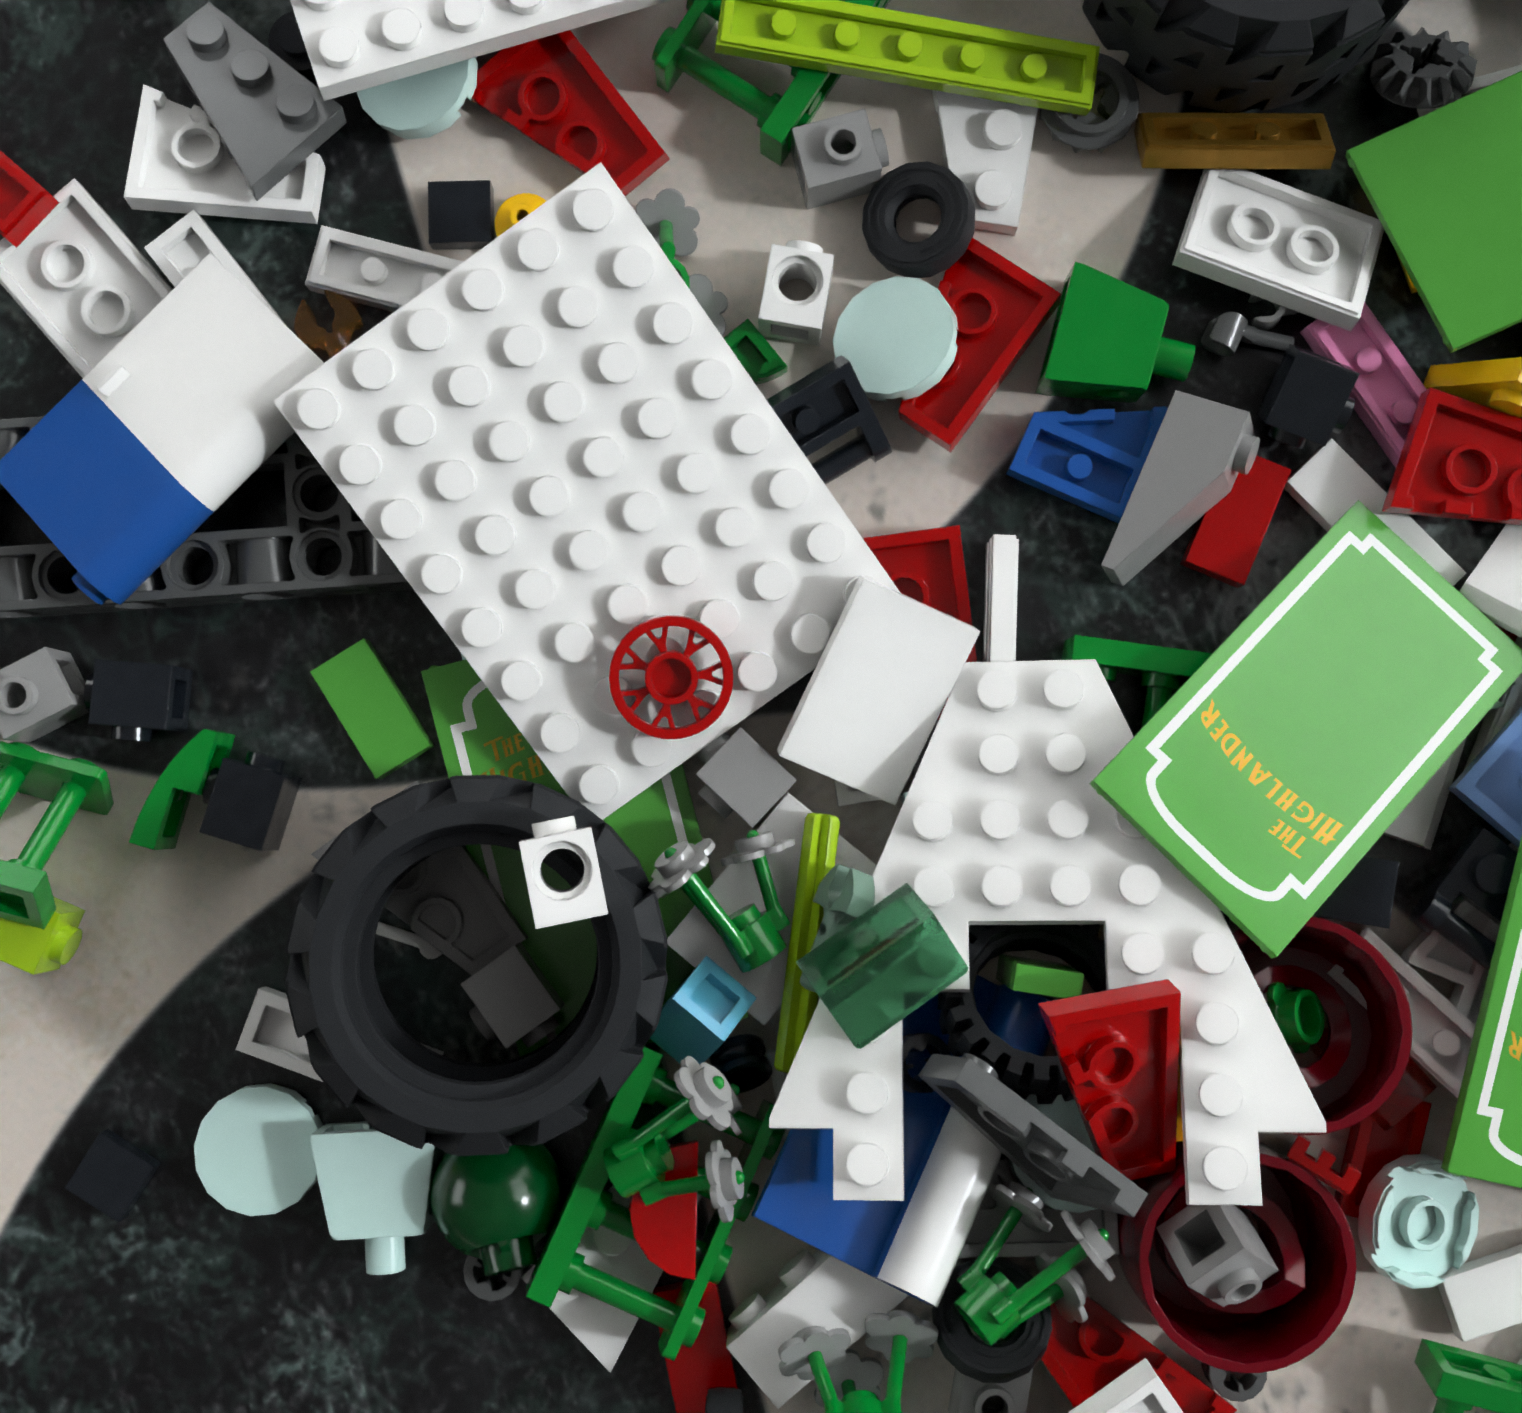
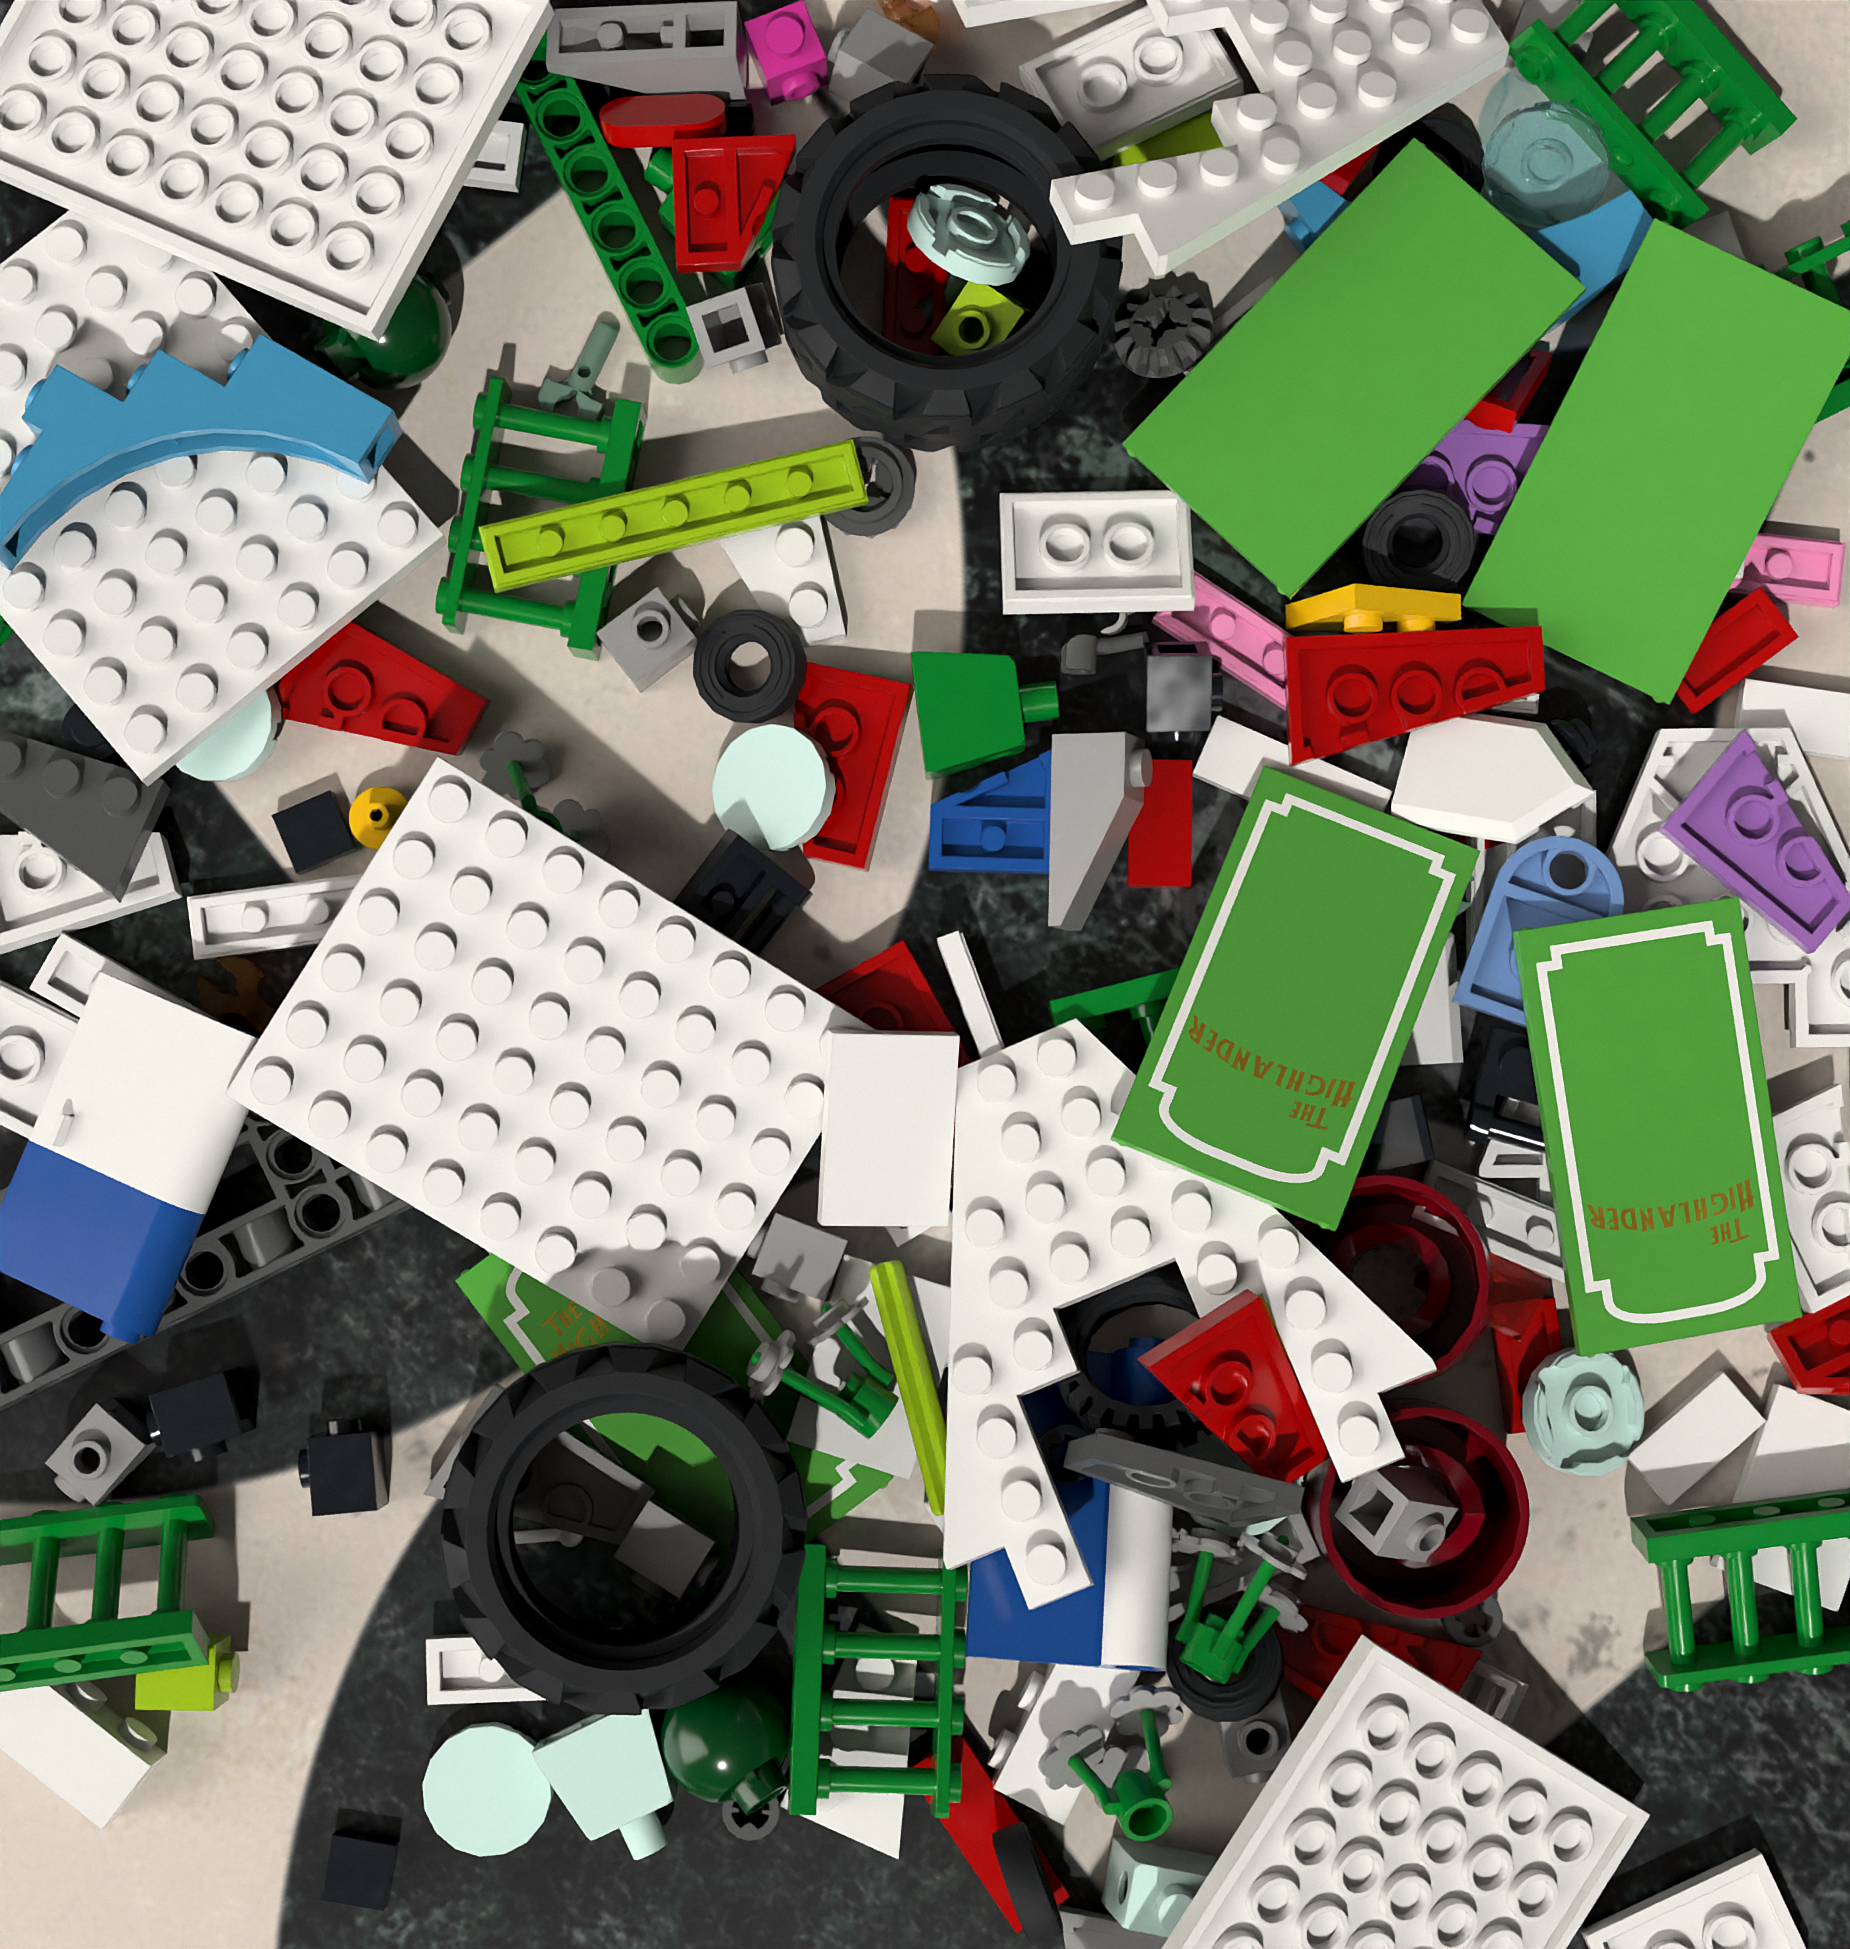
camera: 25 degrees left, 0 degrees up
(168, 801) = (276, 1467): green slope -> none
(372, 709) = (423, 1334): bright green tile -> none
(554, 905) = (672, 1448): white brick -> none
(644, 1157) = (845, 1643): plant -> none
(669, 1226) = (886, 1684): red tile -> none
(671, 677) = (692, 1195): red wheel -> none
(701, 1013) = (846, 1493): medium azure brick -> none
(743, 1061) = (902, 1524): black bush -> none
(755, 353) = (643, 855): green tile -> none
(792, 319) = (666, 809): white brick -> none
(844, 897) = (933, 1331): sand green bar -> none
(883, 966) = (989, 1382): clear green panel -> none
(1039, 976) = (1141, 1330): bright green tile -> none
(1234, 140) = (1015, 471): pearl gold tile -> none
(1297, 1015) = (1384, 1273): green plate -> none
(1321, 1166) = (1466, 1396): red tile -> none

